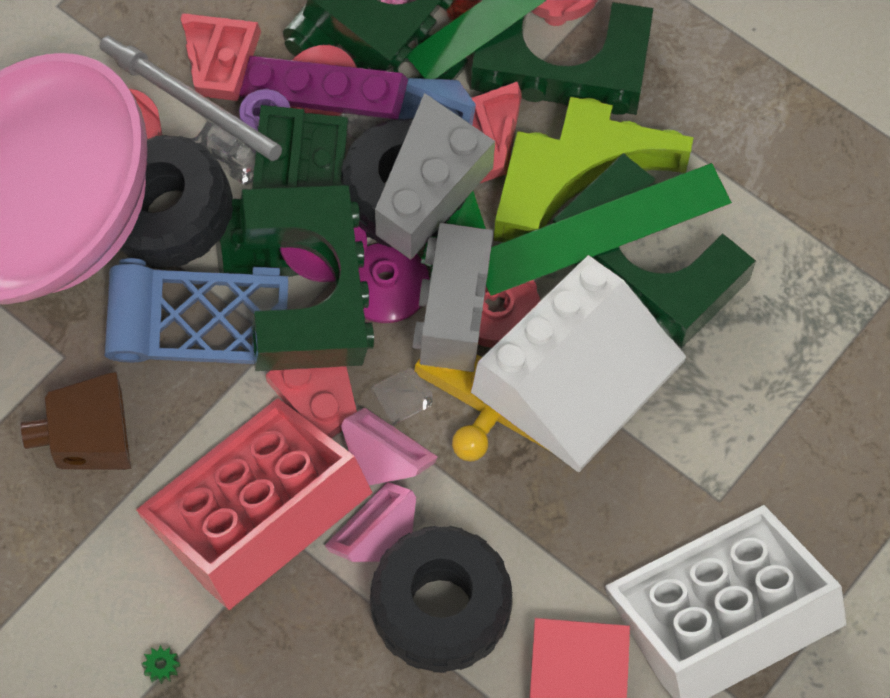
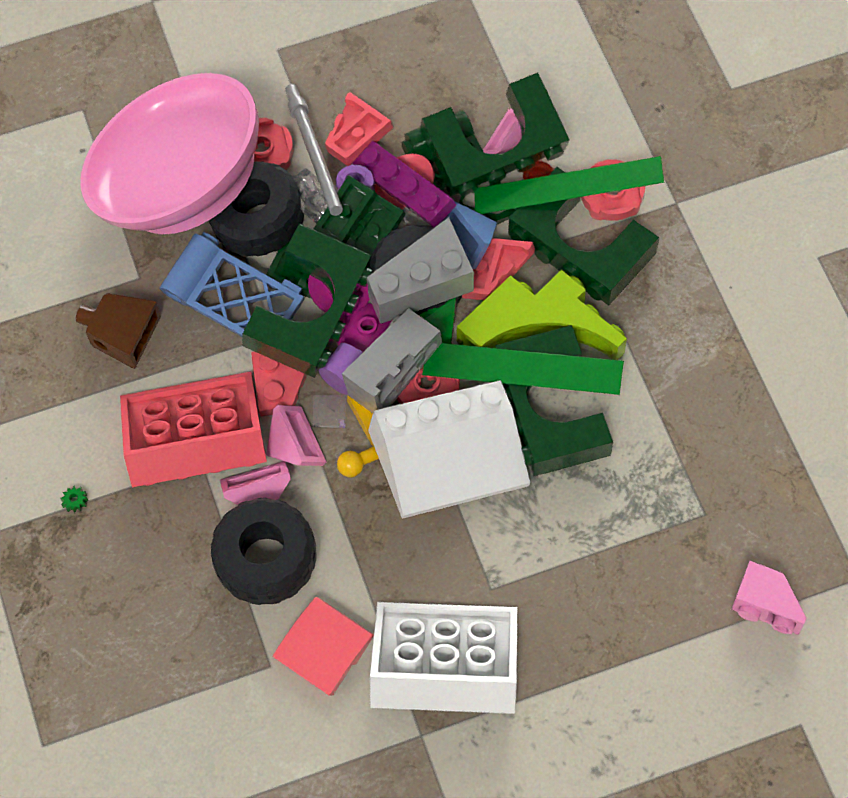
camera: 35 degrees right, 0 degrees up
(393, 335) = (337, 364): none -> medium lavender piece

